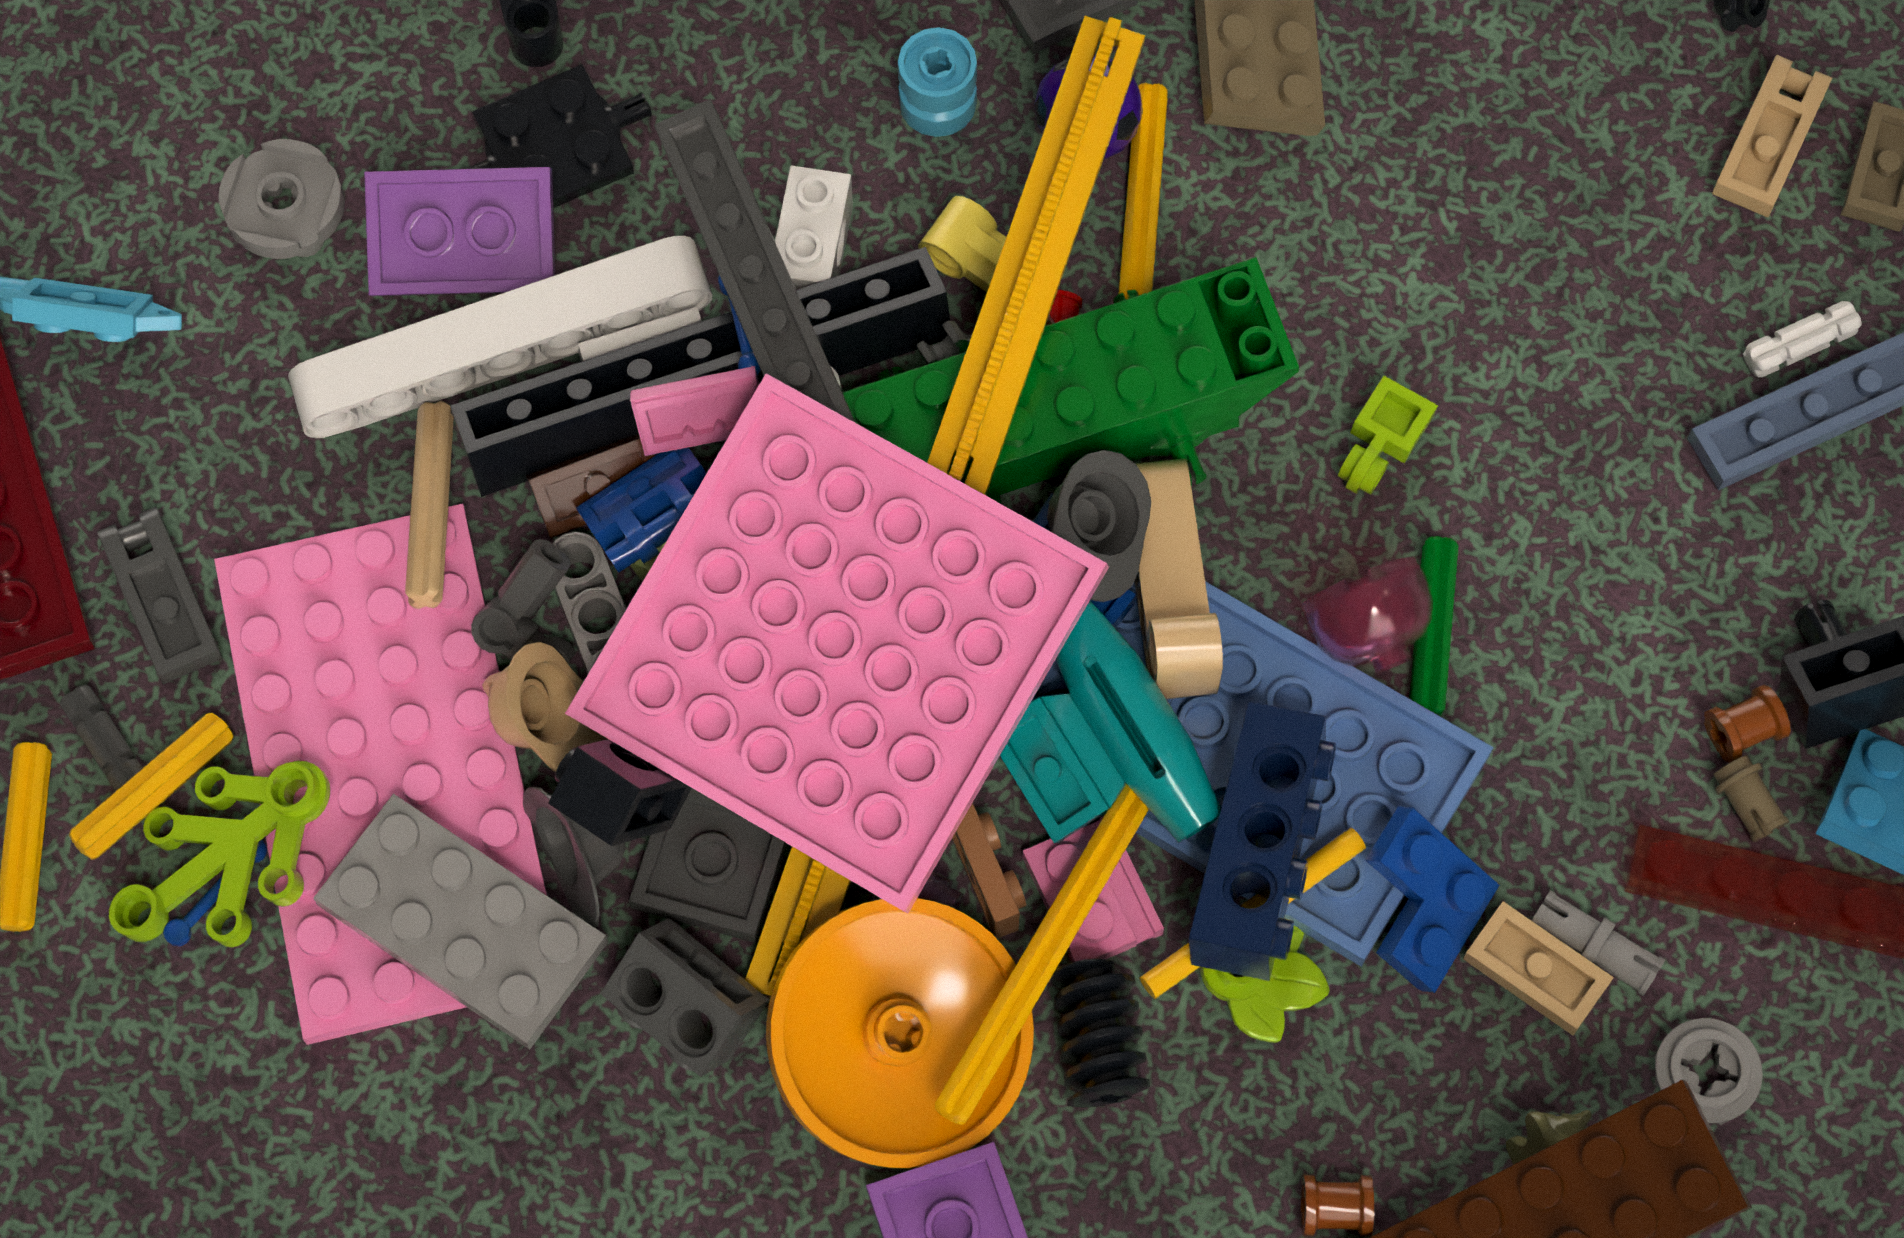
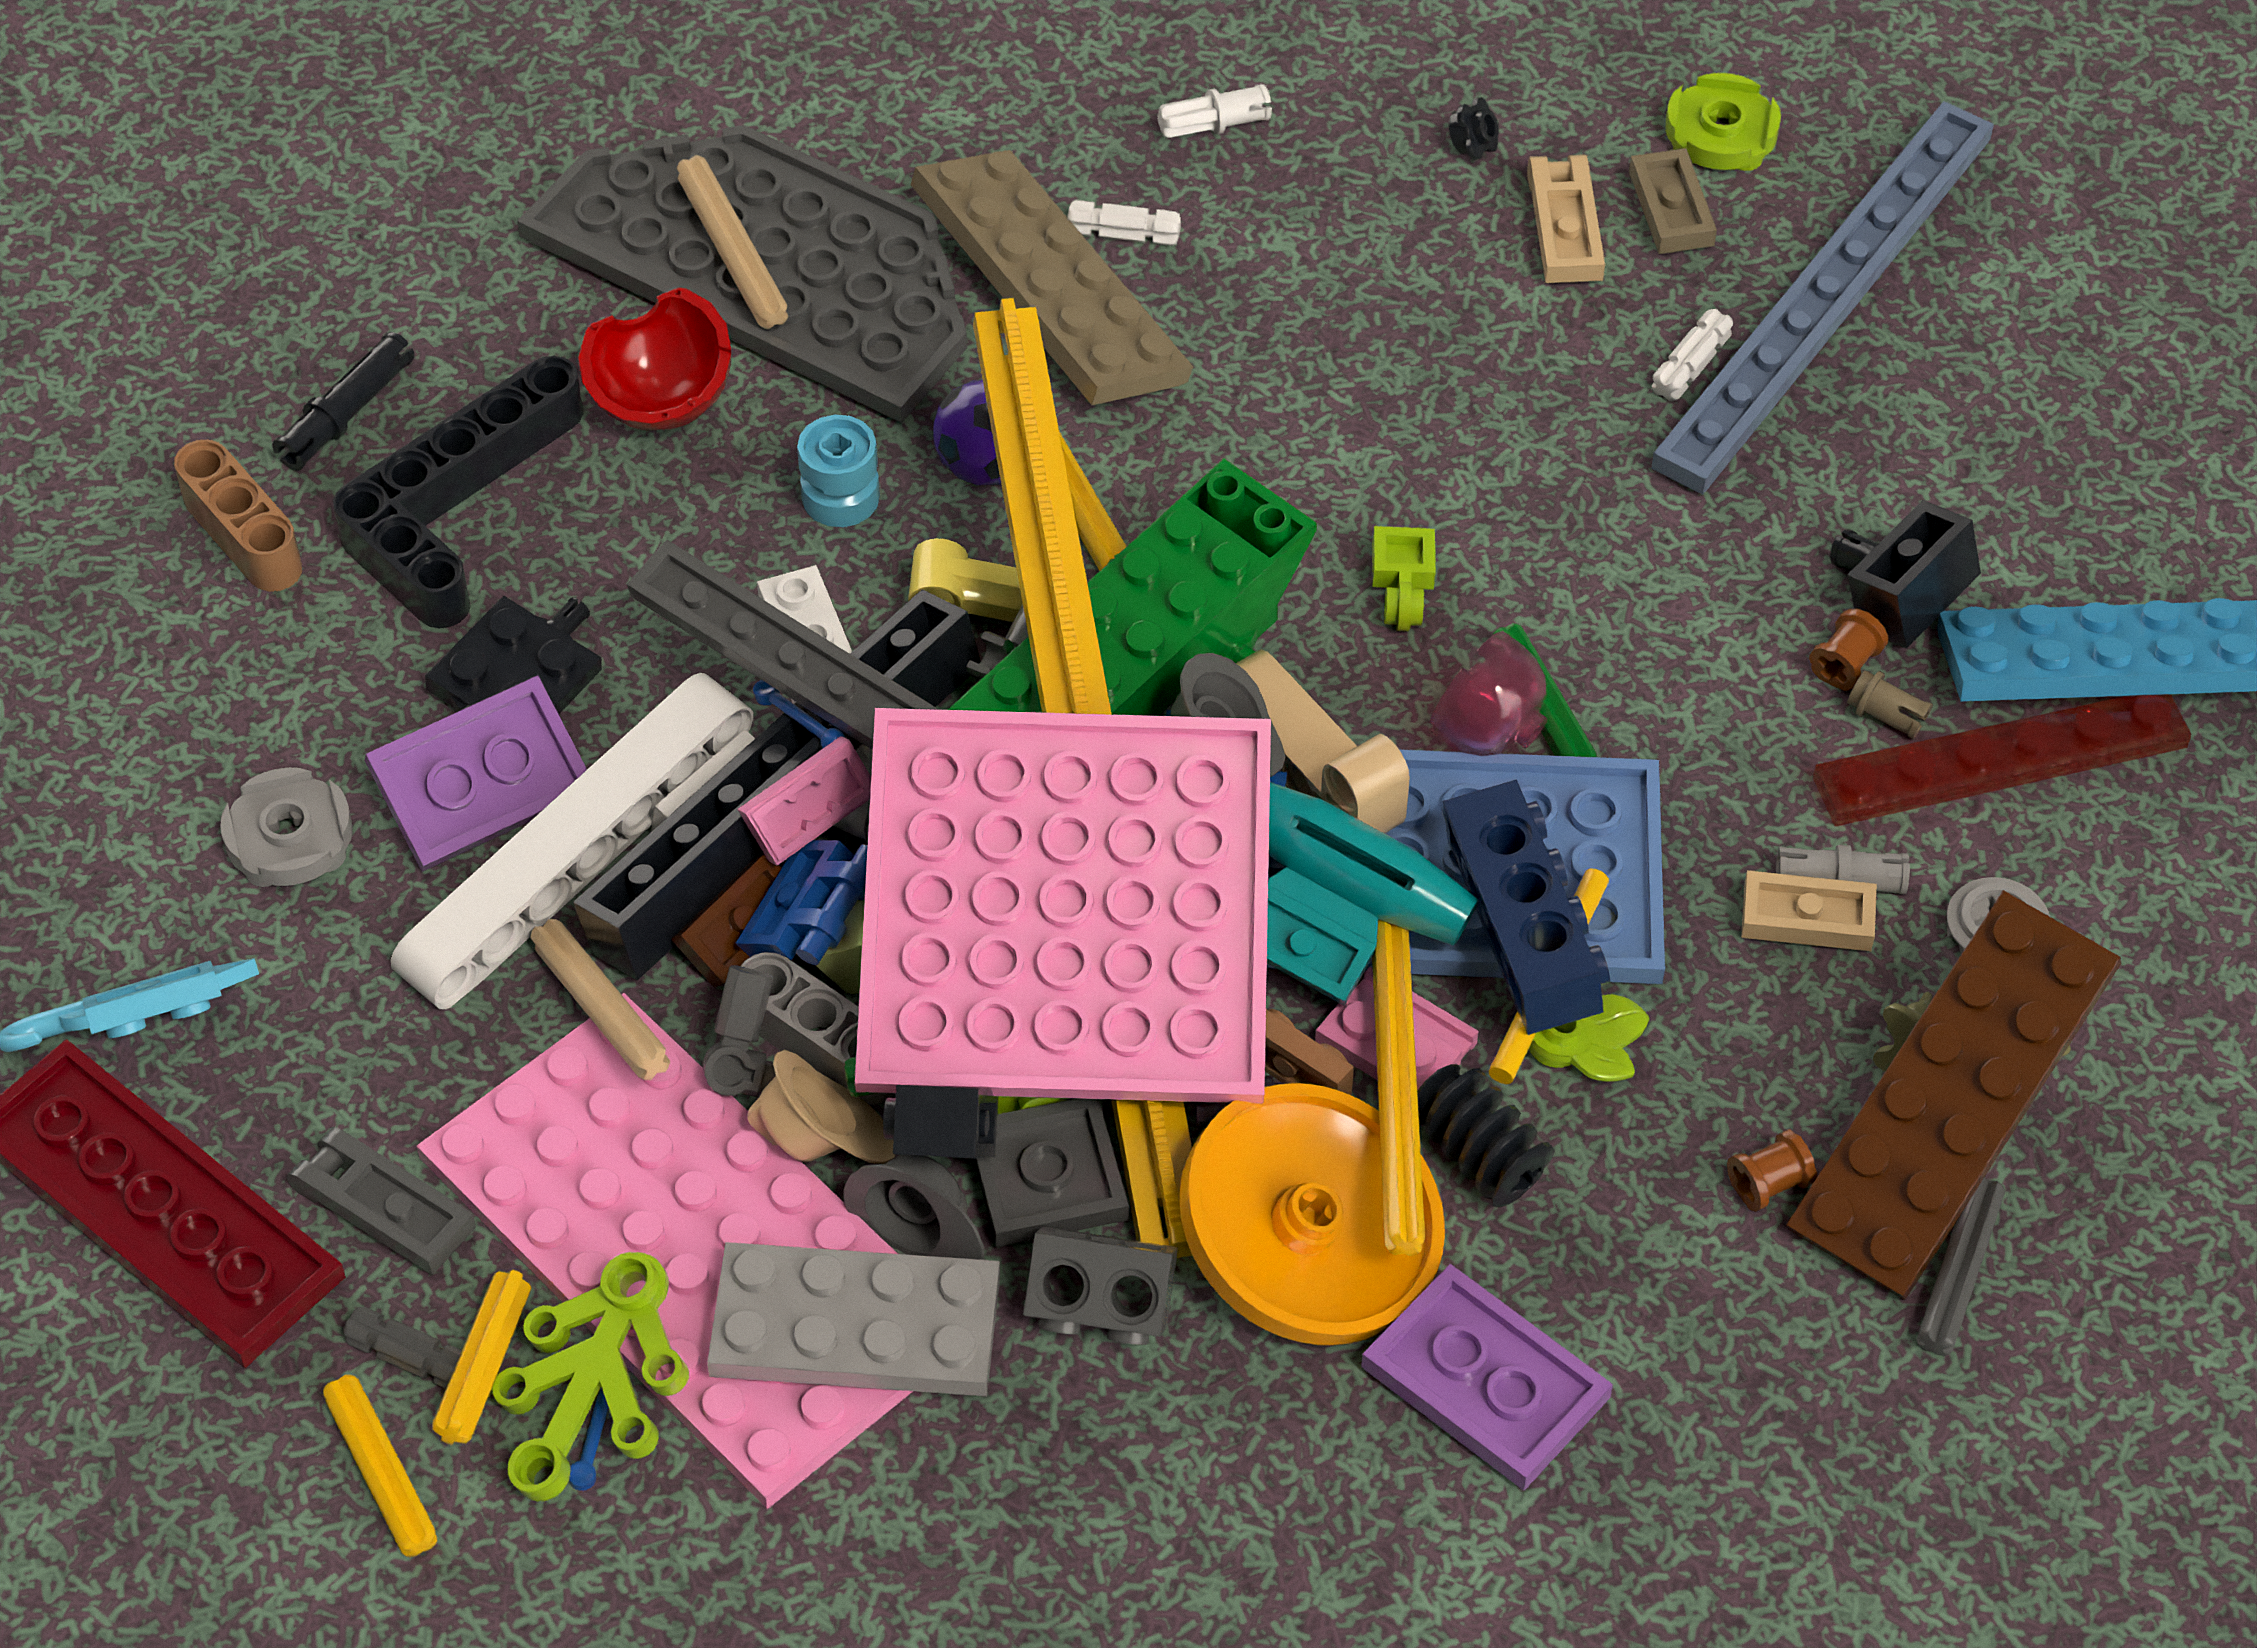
camera: 30 degrees left, 15 degrees down
(1442, 892) = (1694, 888): blue plate -> none

